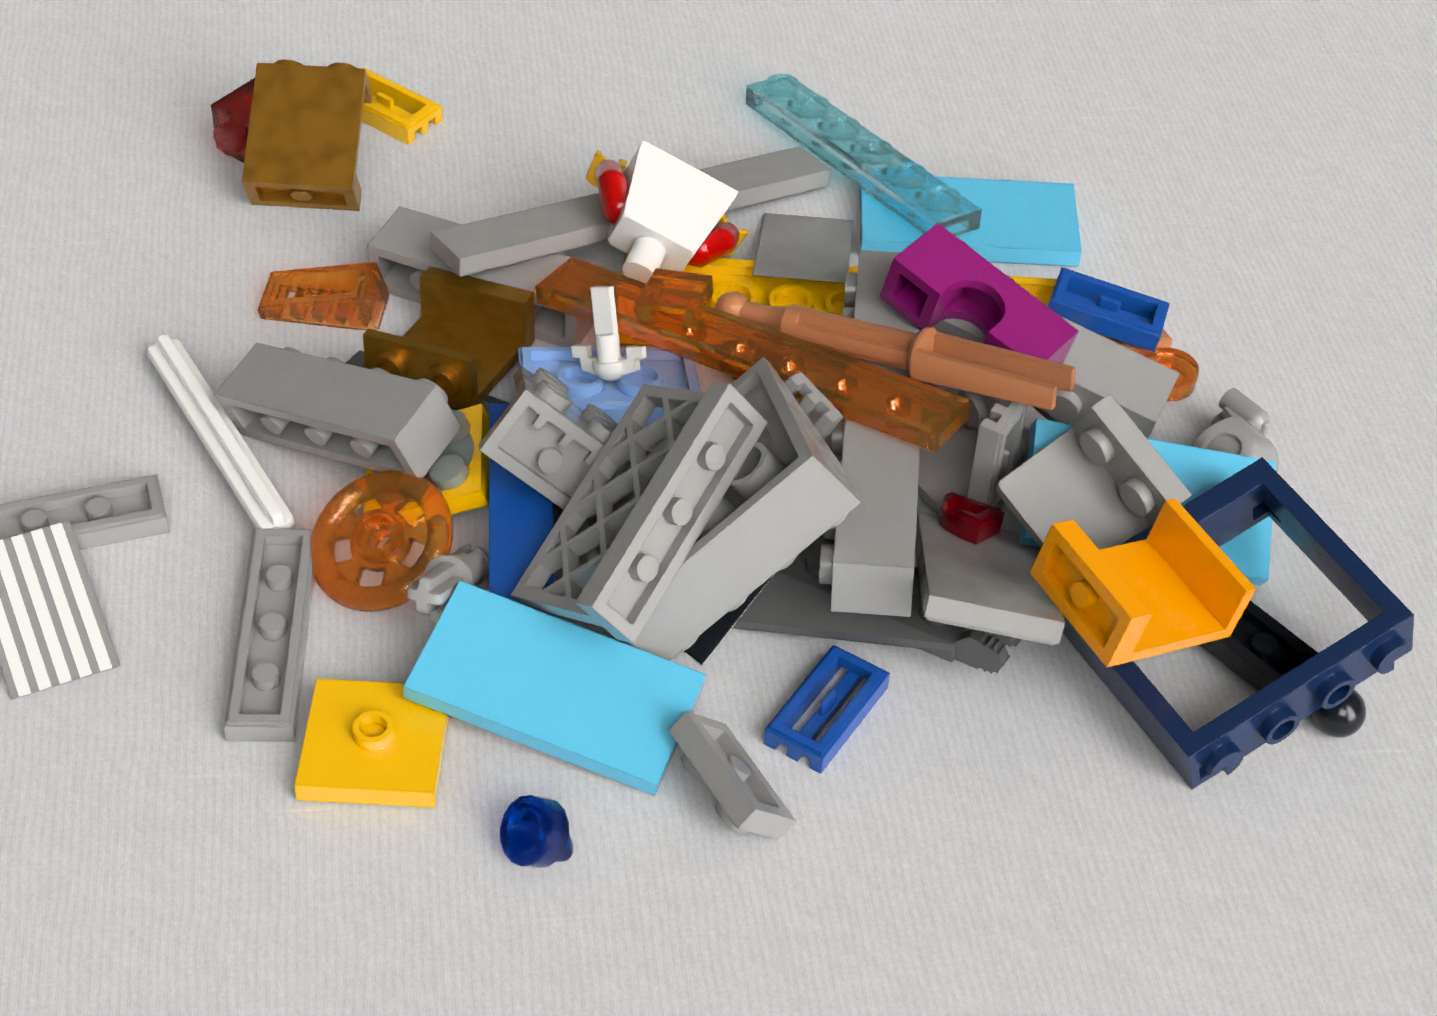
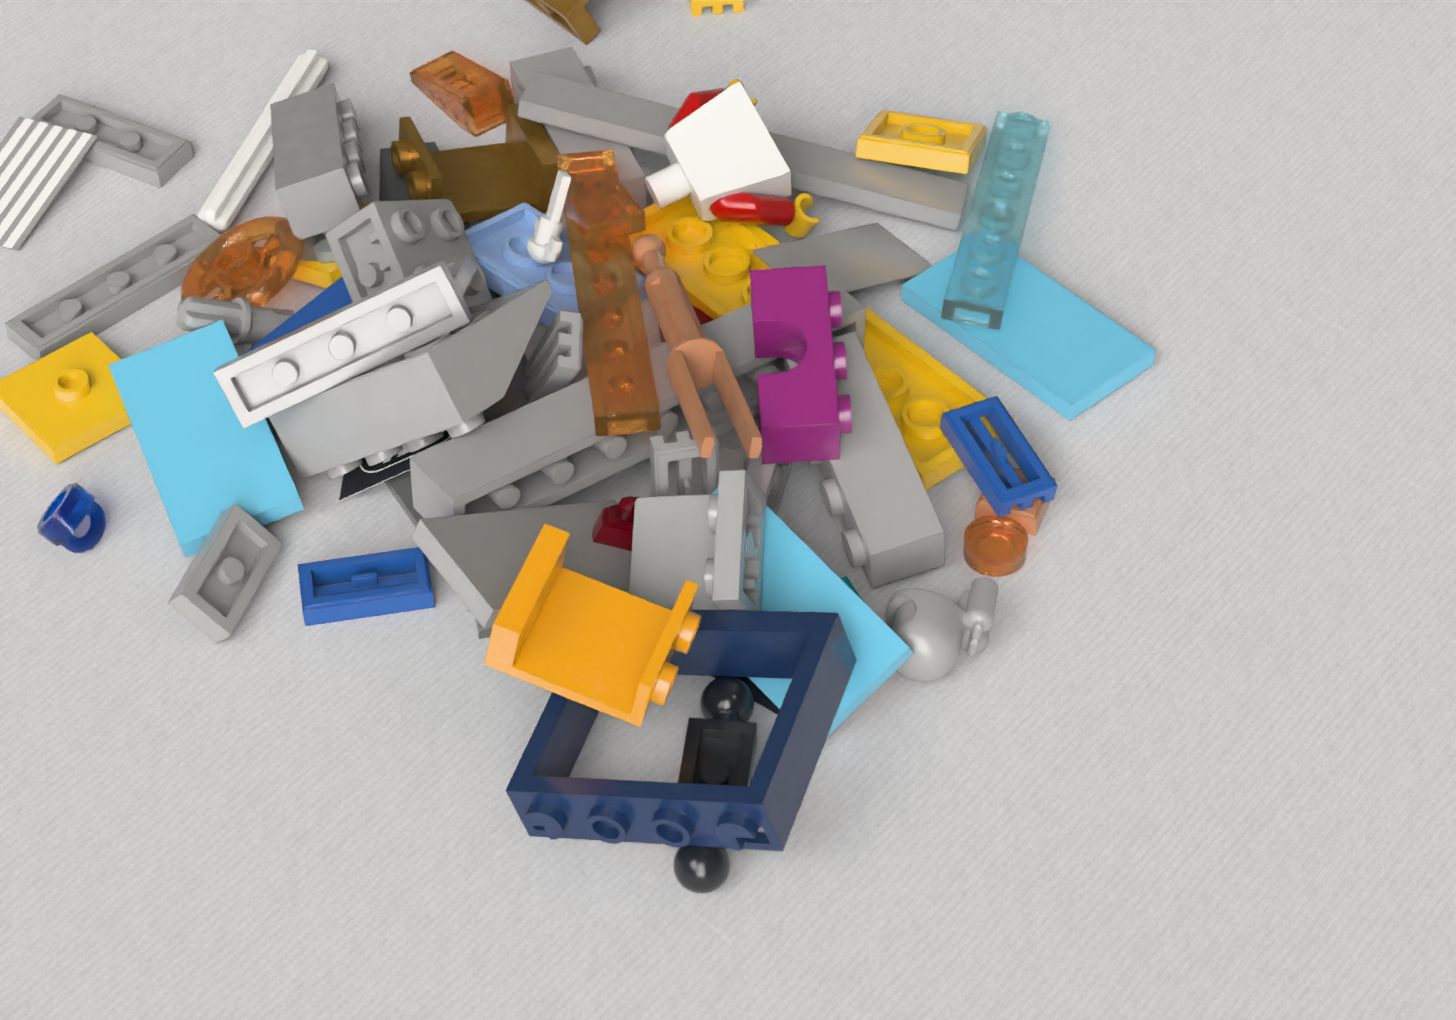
camera: 50 degrees right, 0 degrees up
(734, 133) = (922, 141): none -> yellow plate

